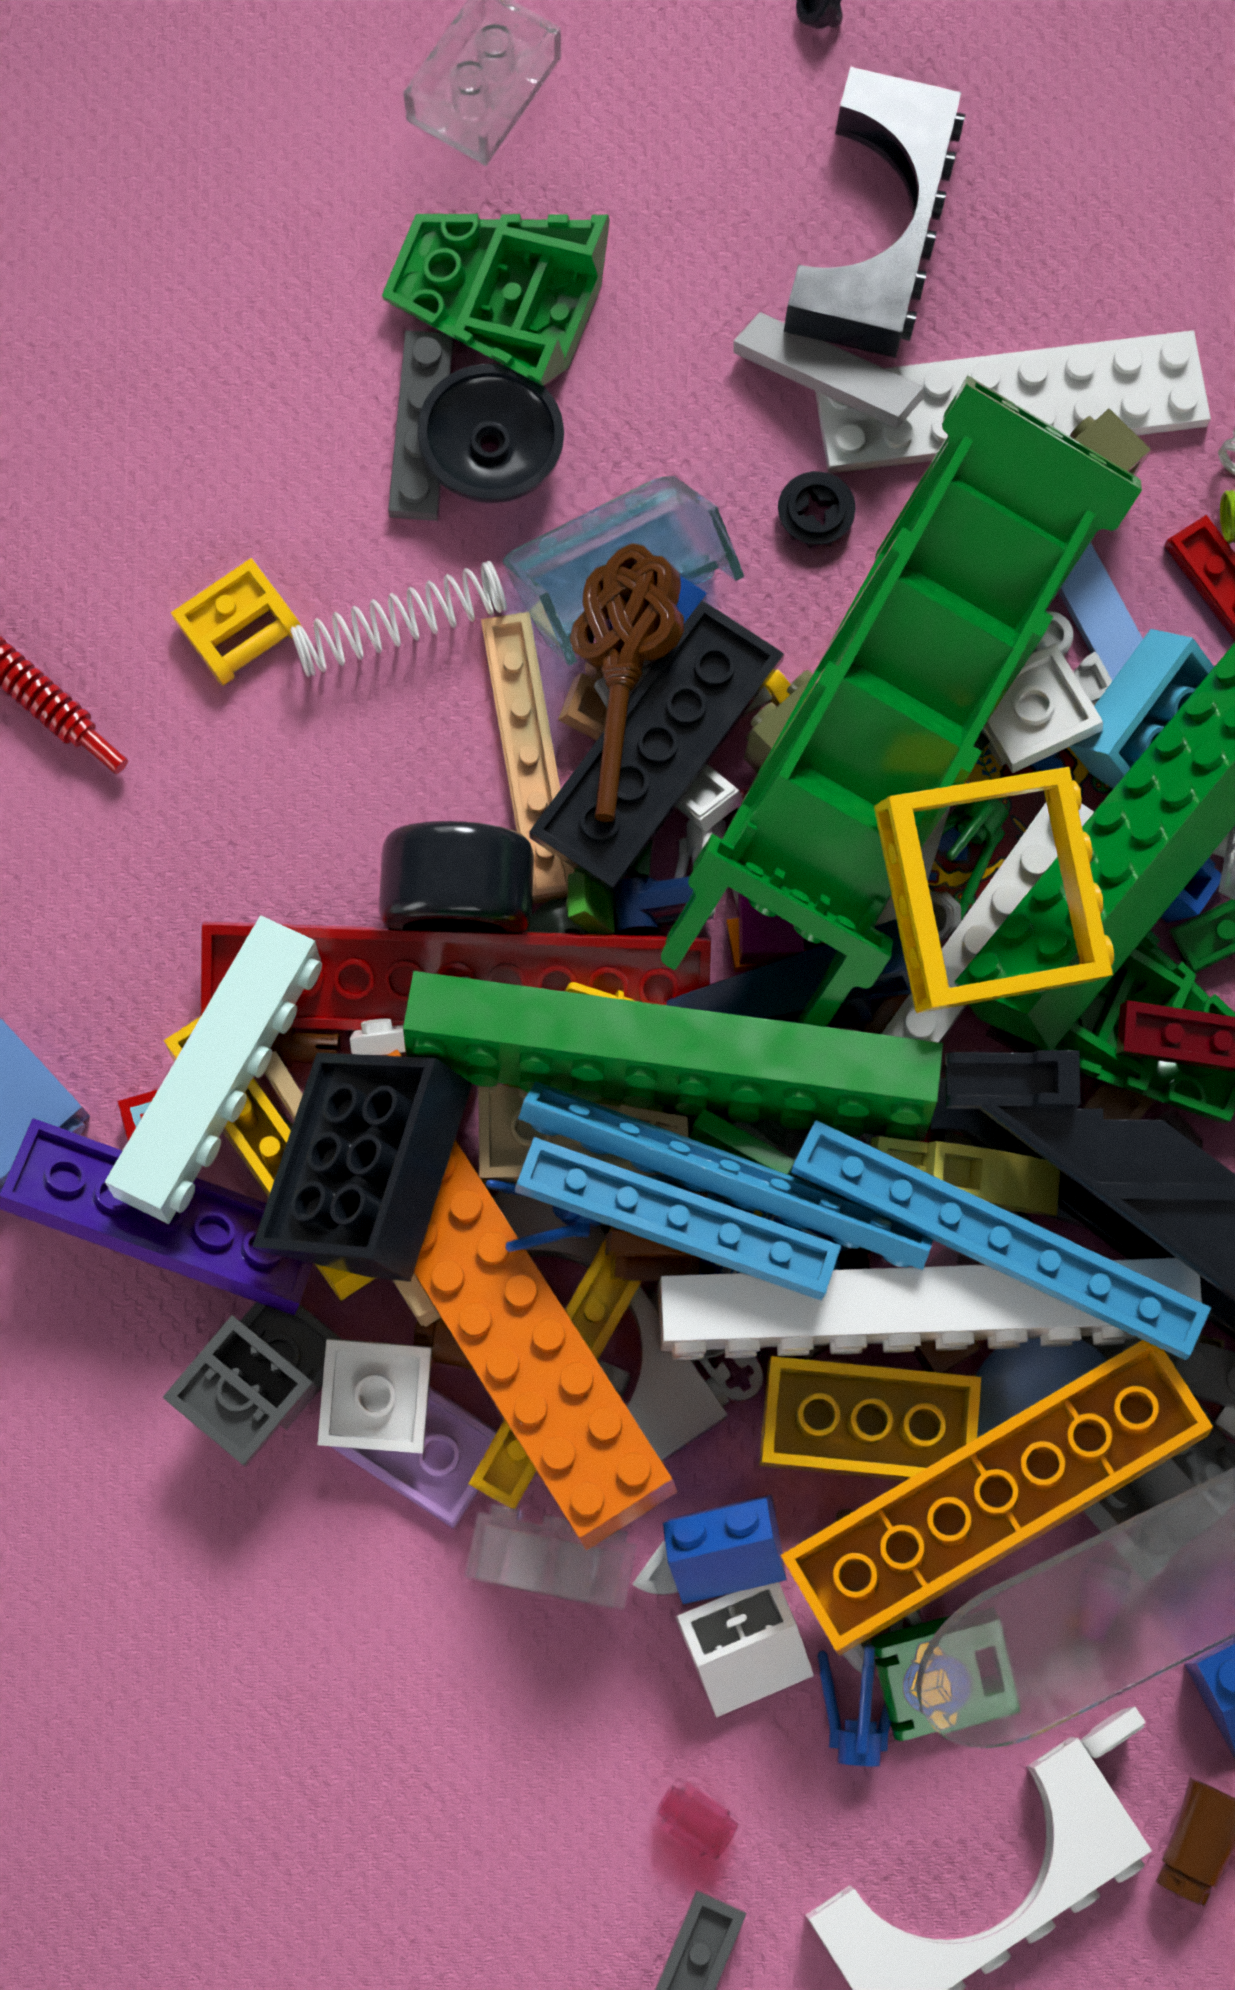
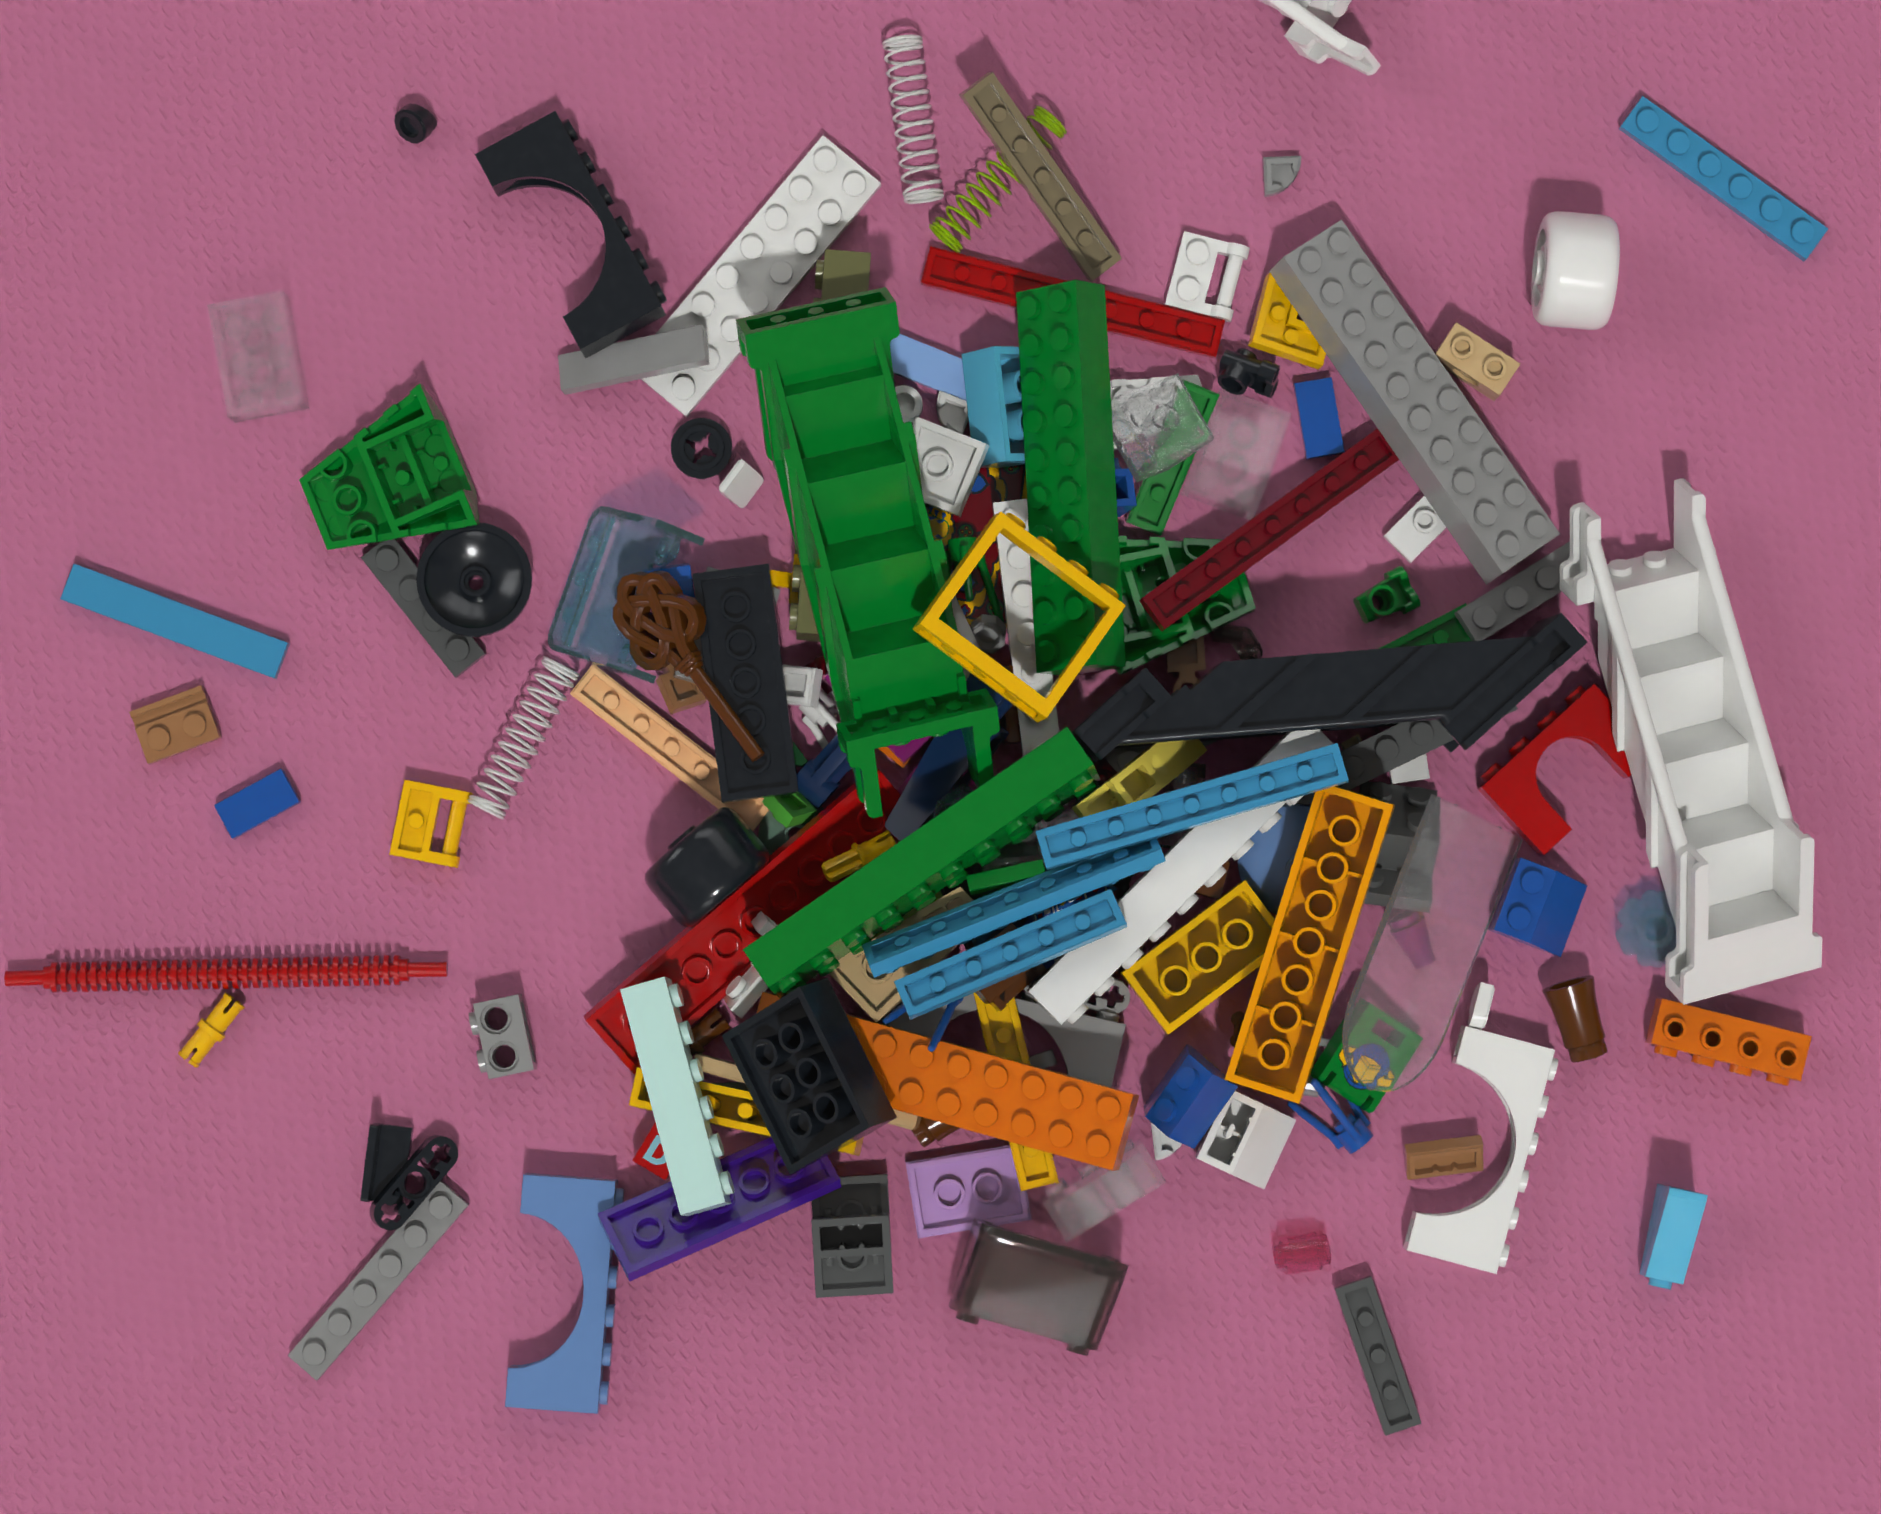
camera: 40 degrees left, 10 degrees up
(92, 331) = (175, 724): none -> medium nougat plate
(96, 464) = (257, 803): none -> blue tile
(125, 882) = (514, 1034): none -> light grey brick
(183, 242) = (175, 621): none -> dark azure tile
(374, 1395) = (925, 1189): white plate -> none
(395, 1600) = (1036, 1286): none -> clear smoke windscreen
(824, 570) = (741, 484): none -> white slope
(933, 1858) = (1444, 1157): none -> medium nougat plate

